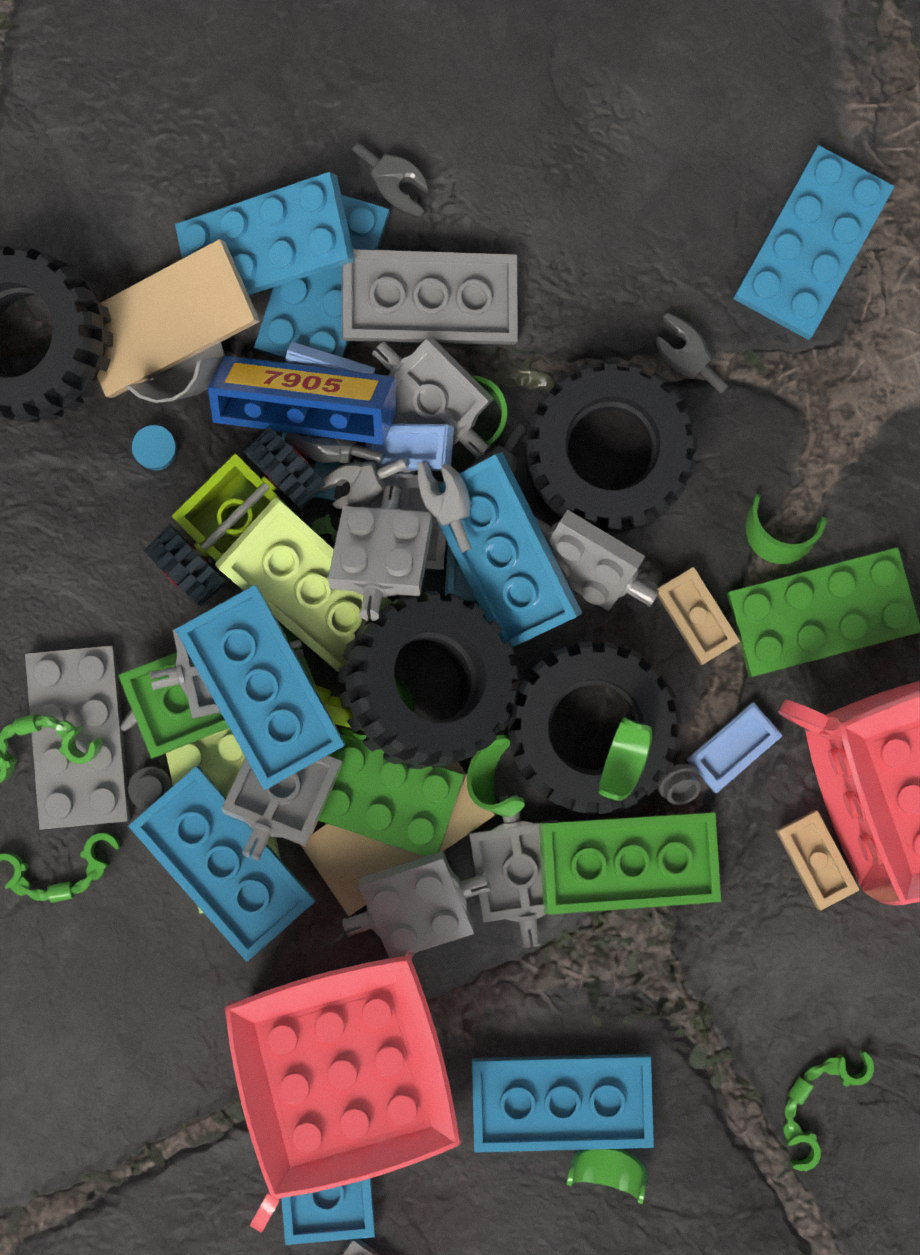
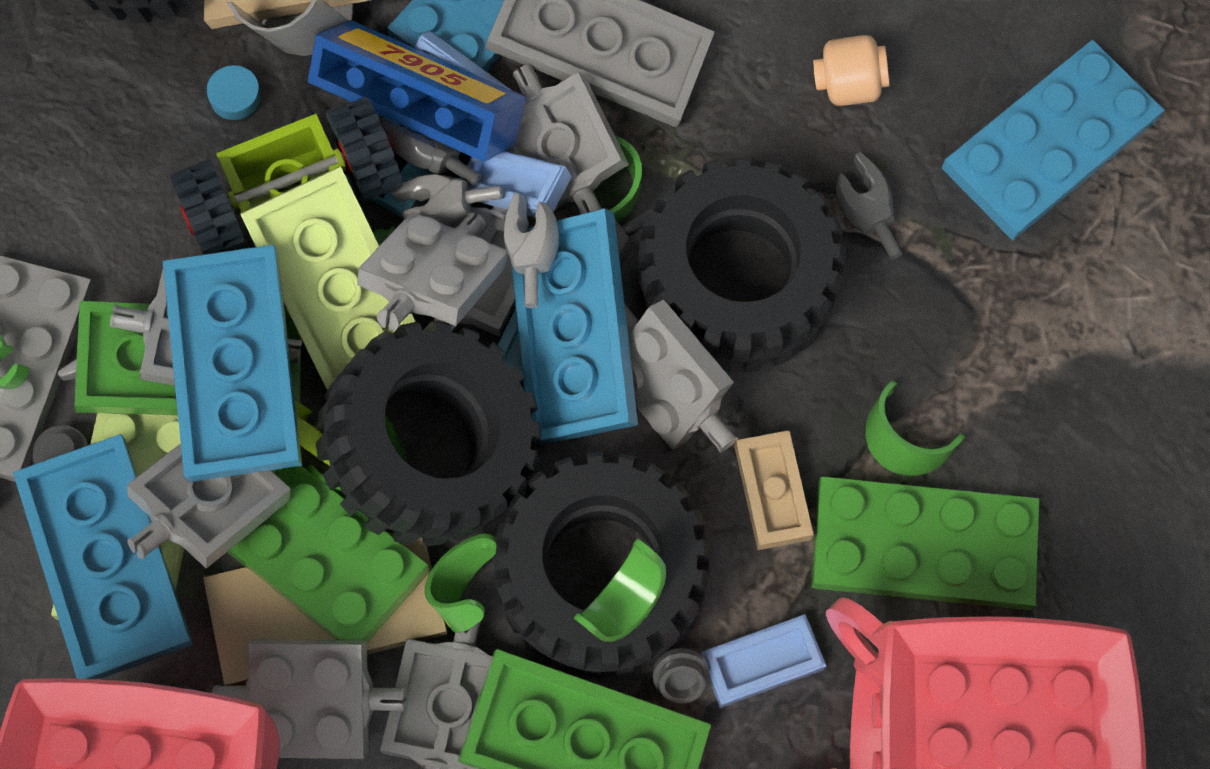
camera: 15 degrees right, 15 degrees down
(637, 246) = (852, 70): none -> light nougat head

